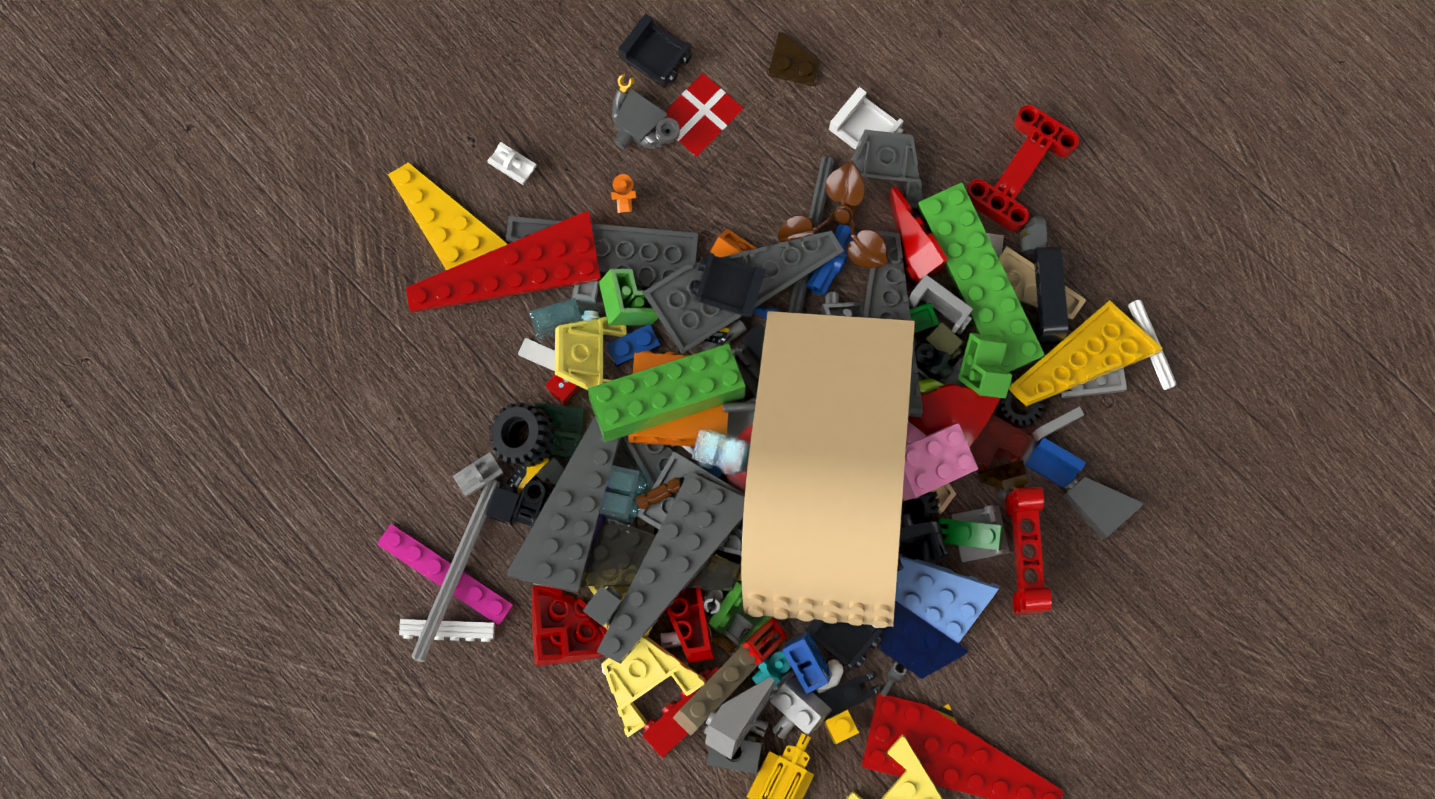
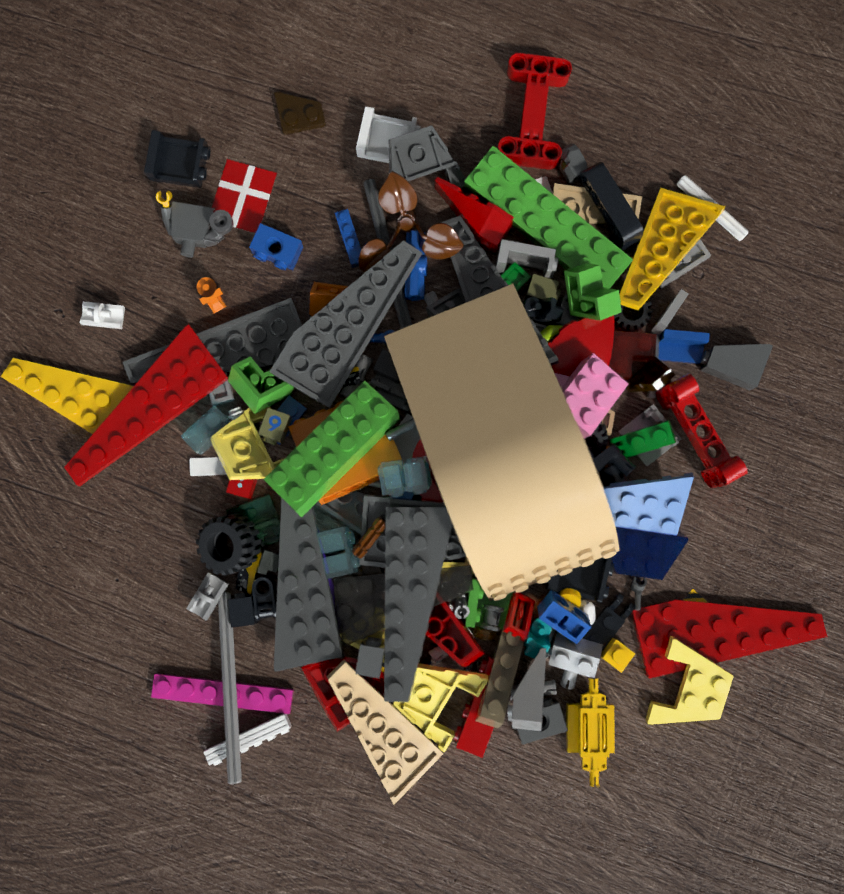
camera: 25 degrees left, 5 degrees up
(582, 697) = (390, 740): none -> tan wing
(621, 346) = (274, 426): none -> olive brick
(701, 166) = (266, 238): none -> blue brick
(728, 285) = (339, 330): black panel -> none
(782, 201) = (349, 237): none -> blue piece
(826, 649) = (572, 596): none -> yellow tile

